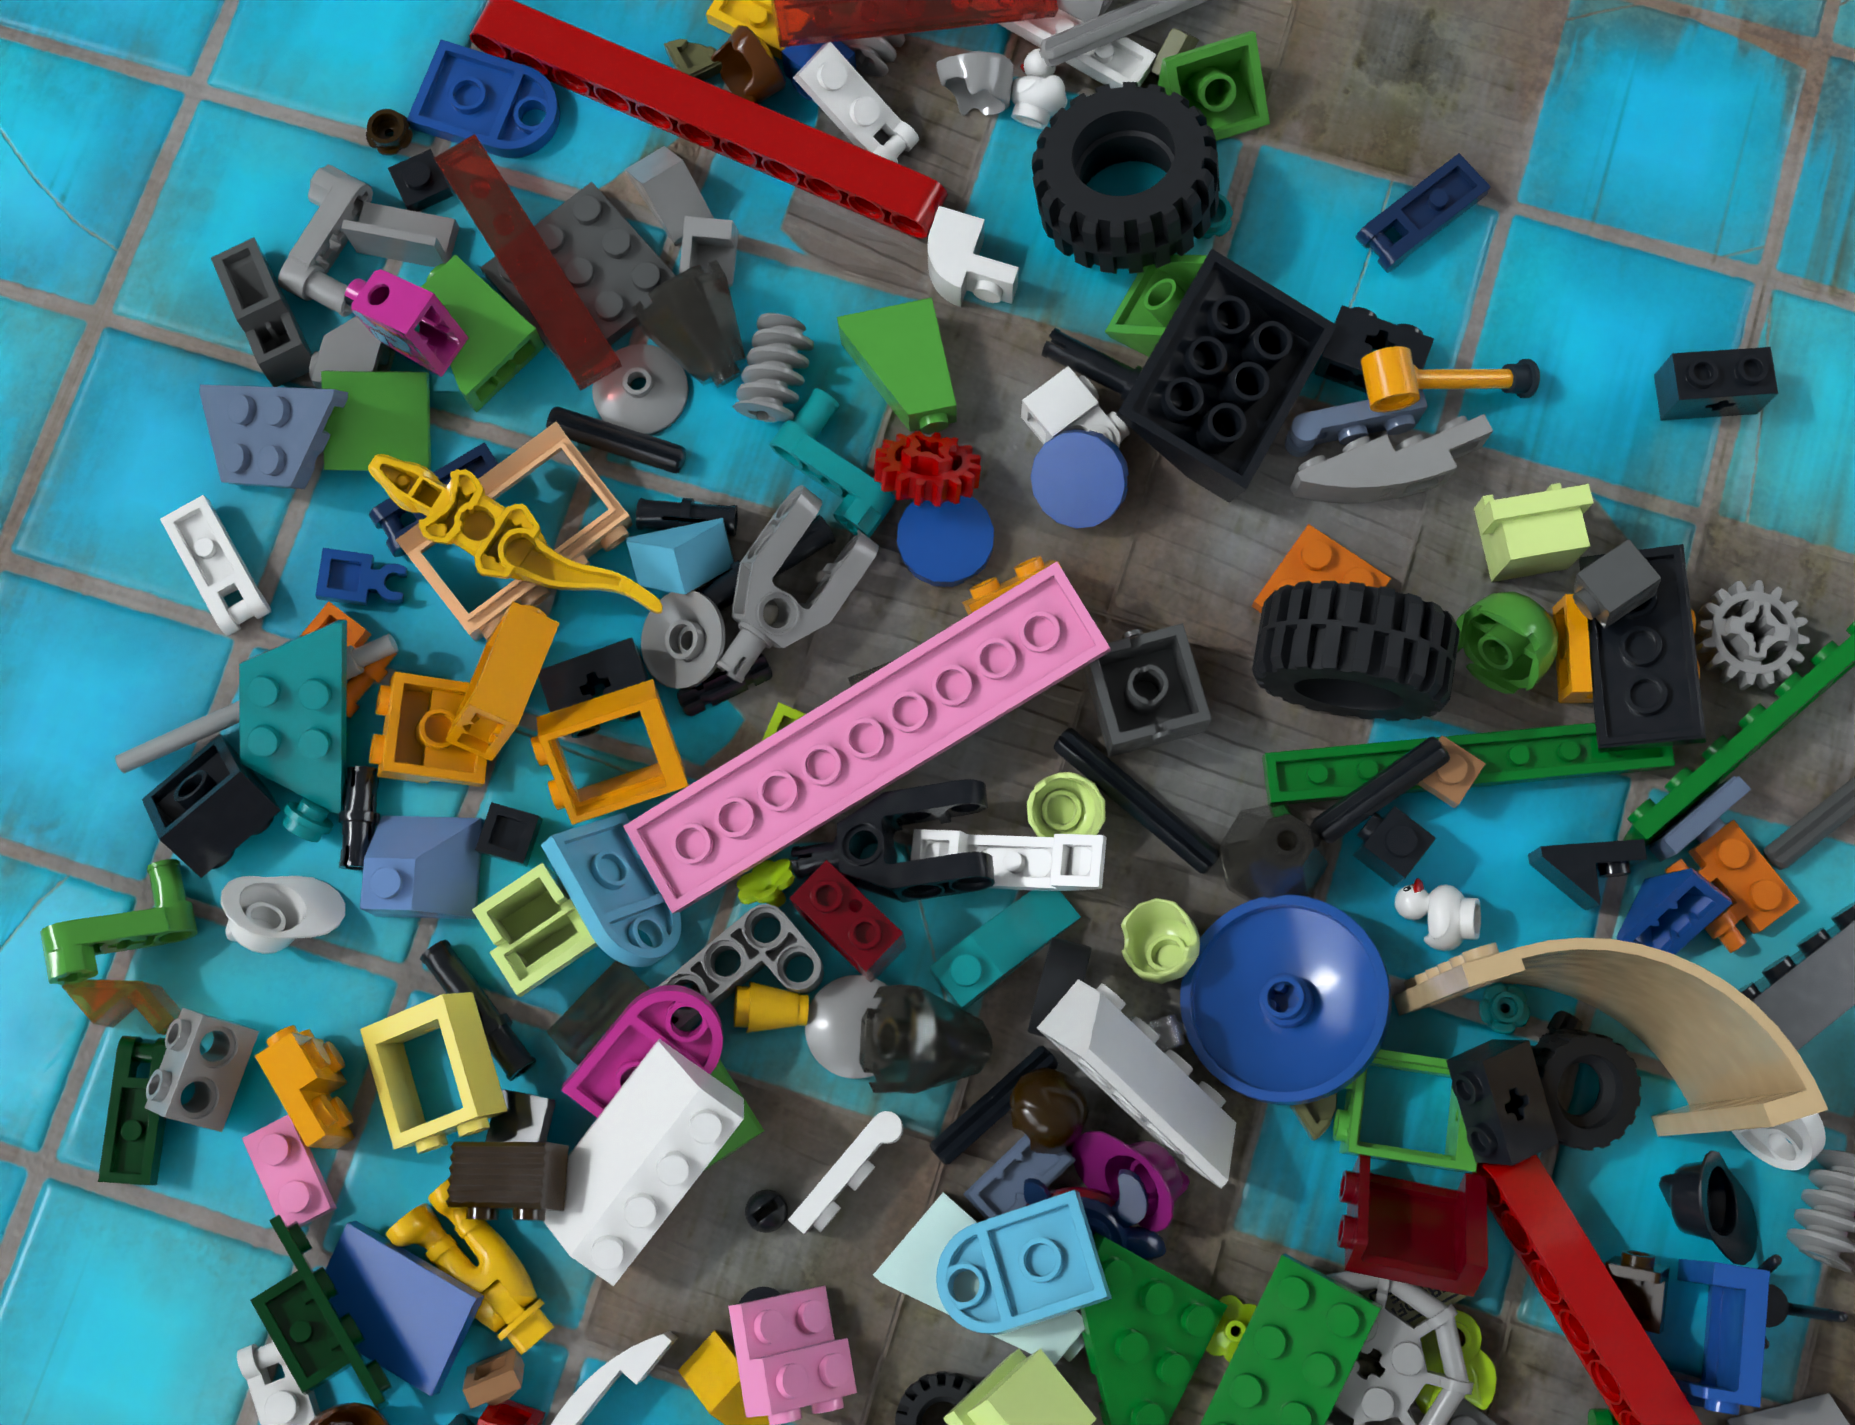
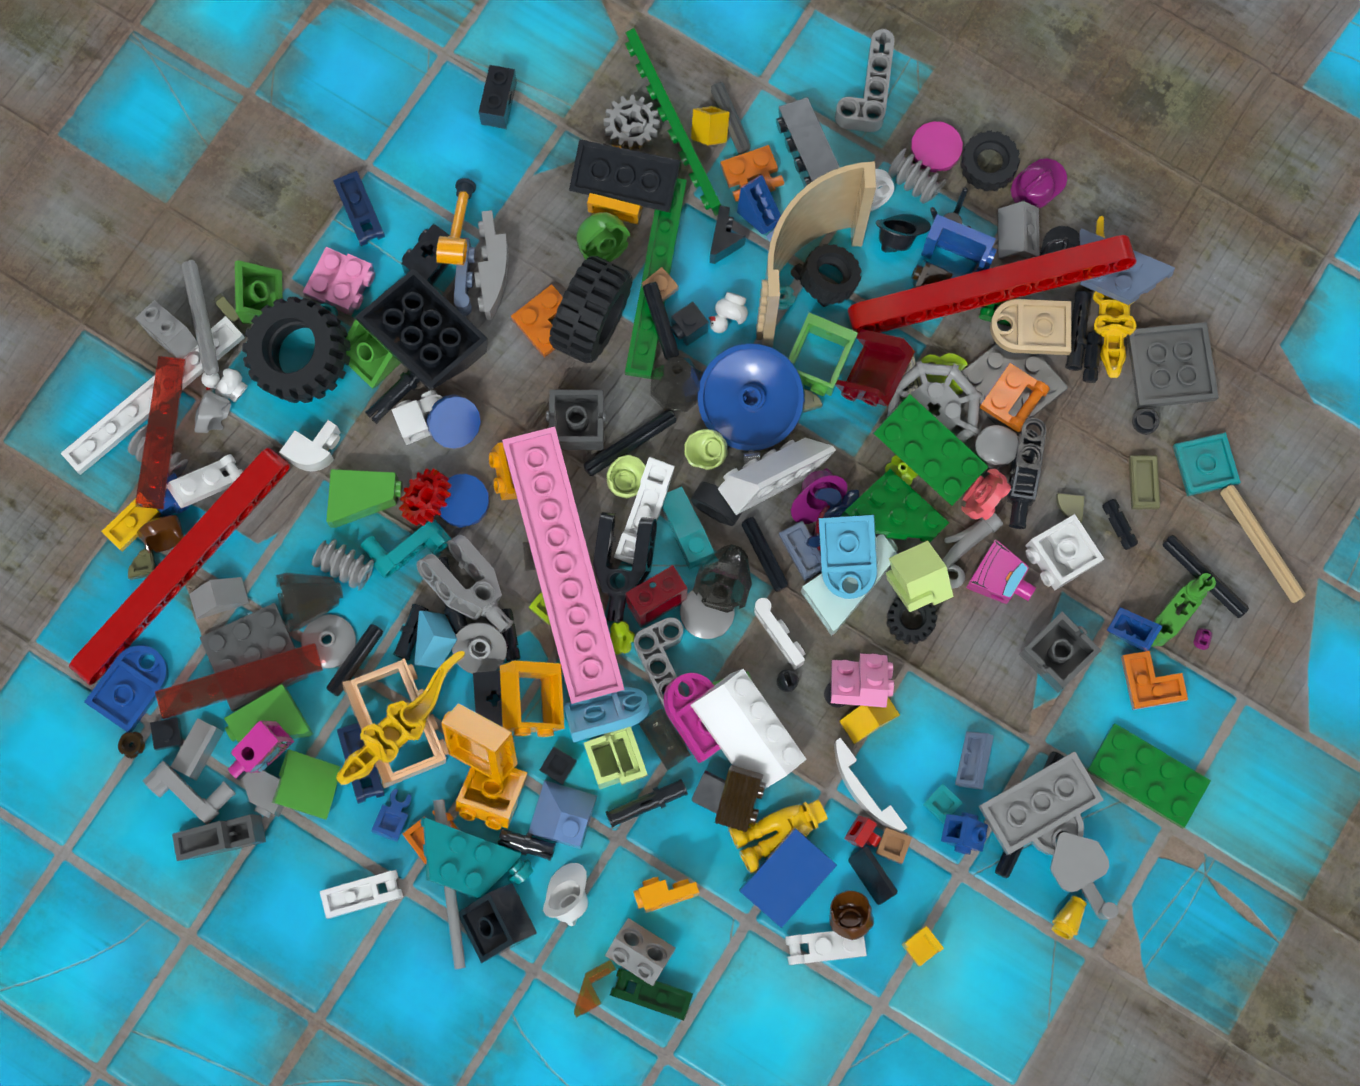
camera: 80 degrees left, 0 degrees up
(73, 944) = (557, 1002): bright green beam -> none
(268, 432) = (296, 845): sand blue wing -> none
(289, 1172) = (705, 921): bright pink plate -> none
(307, 1326) = (786, 918): dark green bracket -> none
(469, 1058) = (674, 805): light yellow window -> none
(494, 1379) = (835, 834): medium nougat plate -> none
(709, 241) = (261, 582): light grey panel -> none
(768, 1008) = (685, 656): yellow cone -> none
(1048, 1110) = (775, 524): dark brown hair -> none
(1281, 221) = (340, 281): none -> bright pink plate
(1502, 1102) = (828, 309): black brick -> none
(1534, 531) = (547, 207): yellowish green plate -> none
(1615, 584) = (592, 177): dark grey brick -> none
(1700, 820) = (716, 176): sand blue plate -> none
(1798, 781) = (710, 125): none -> yellow panel

